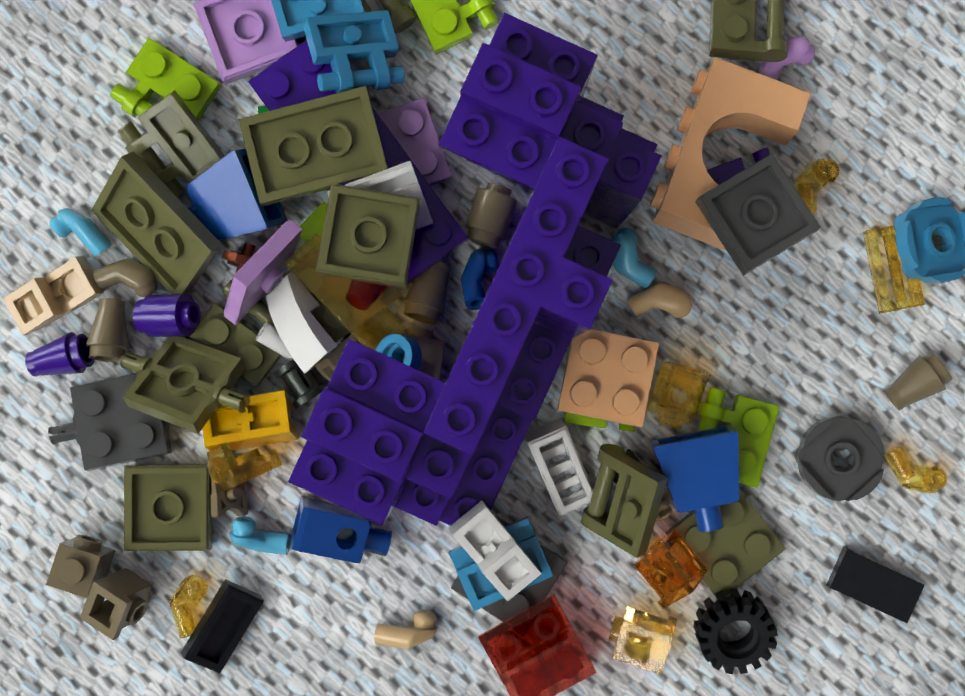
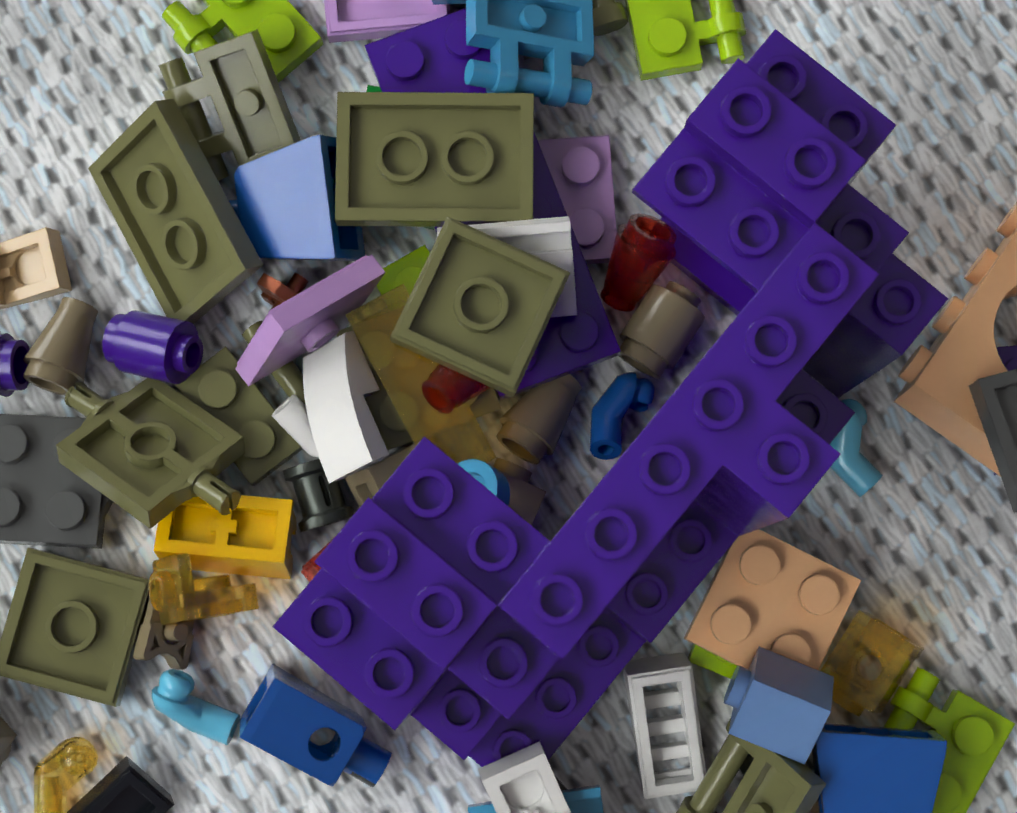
camera: 15 degrees right, 5 degrees down
(82, 227) = (69, 189): medium azure arm -> none
(128, 272) = (116, 271): dark tan arm -> none
(461, 181) = (637, 259): none -> clear red cone
(626, 436) = (779, 704): none -> medium blue brick
(662, 296) = (882, 515): tan arm -> none

